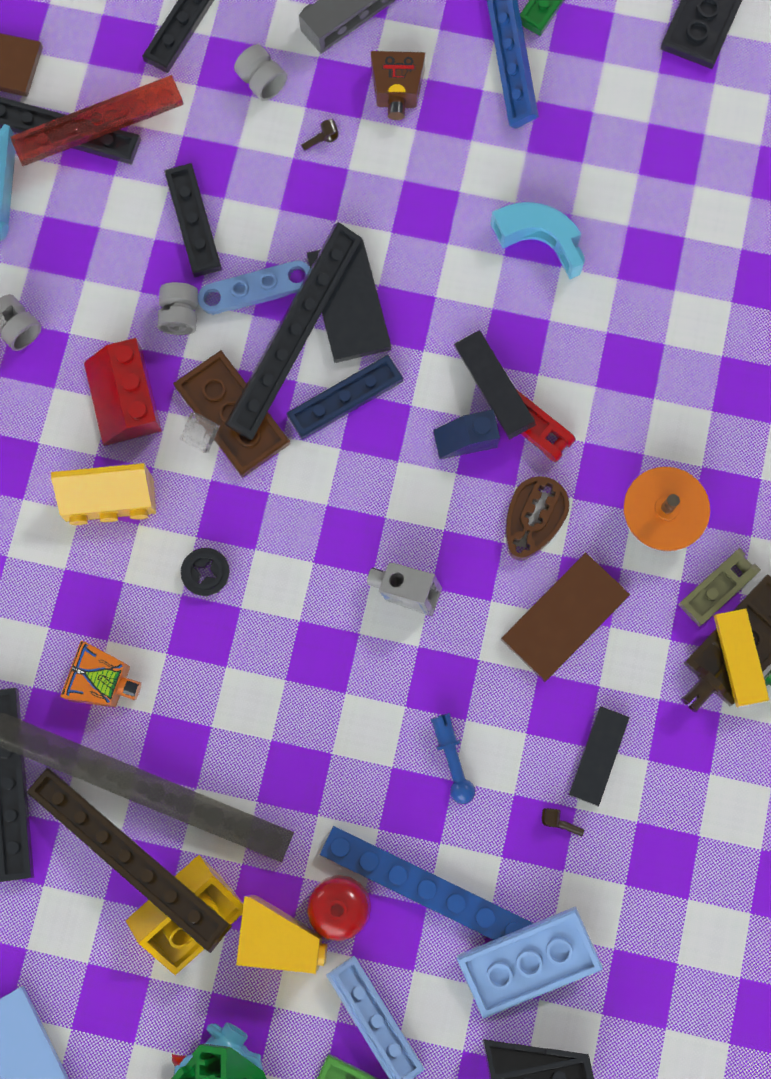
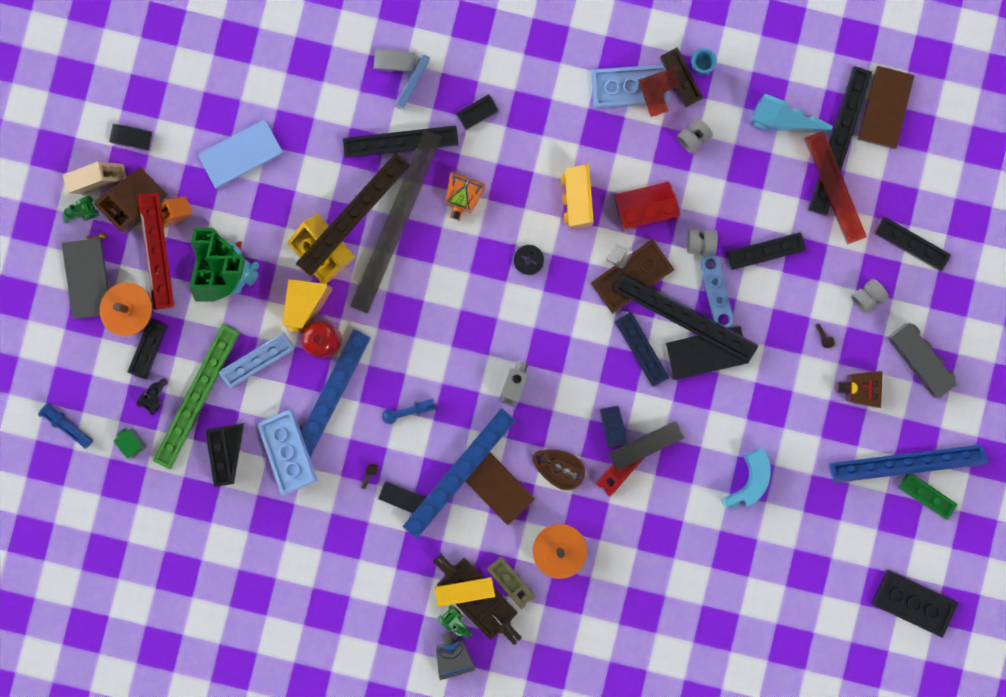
camera: 90 degrees right, 10 degrees up
(551, 673) = (459, 473): none -> blue plate

